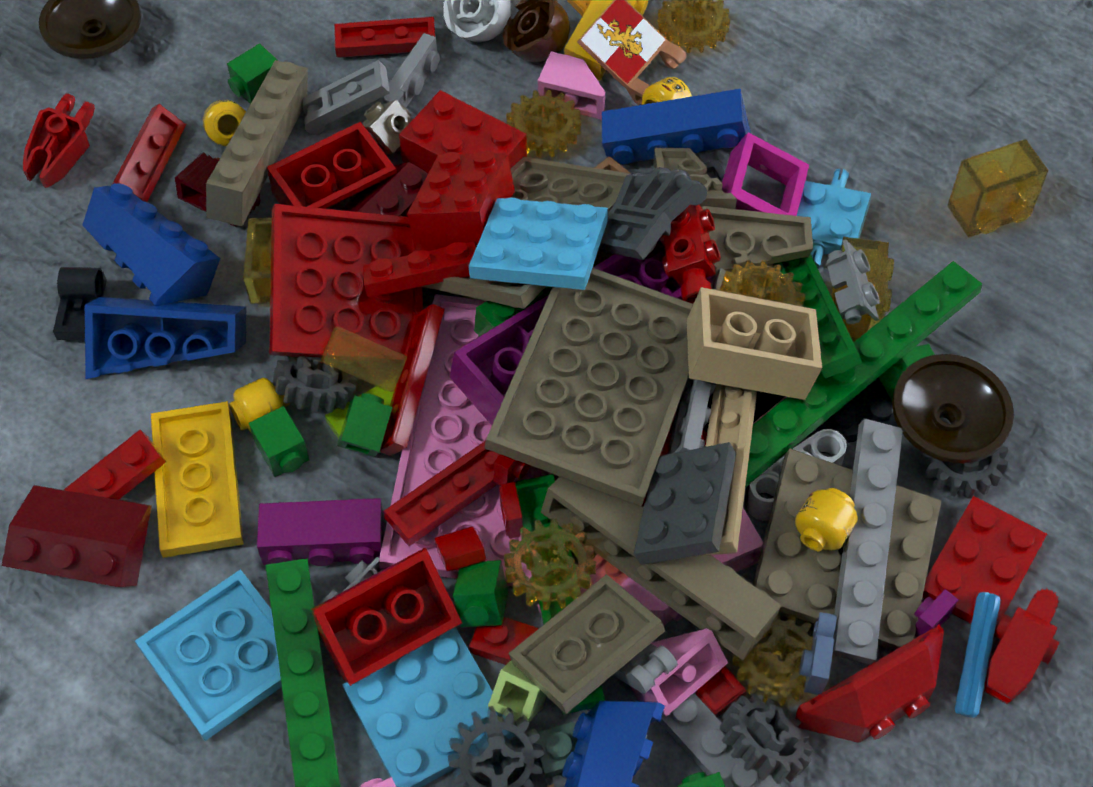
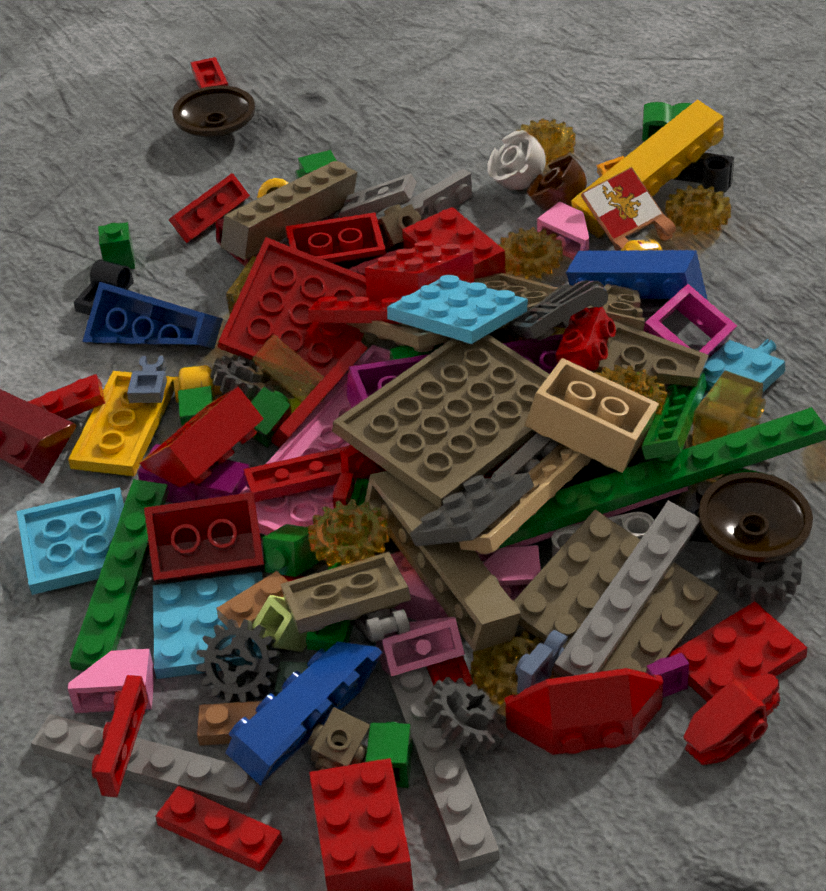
camera: 25 degrees right, 15 degrees down
(57, 141) = (146, 183): red hinge -> none
(66, 239) = (117, 244): none -> green brick
(150, 245) = (174, 263): blue wedge -> none
(207, 422) = (149, 383): none -> sand blue plate
(320, 487) = (205, 440): none -> red slope
(380, 36) = (432, 168): red plate -> none
(460, 549) = (289, 513): red tile -> none
(477, 675) = (250, 602): none -> medium nougat plate
(826, 519) = (594, 563): yellow head -> none
(860, 296) = (710, 401): light grey hinge -> none
(977, 654) = (671, 737): dark azure axle -> none

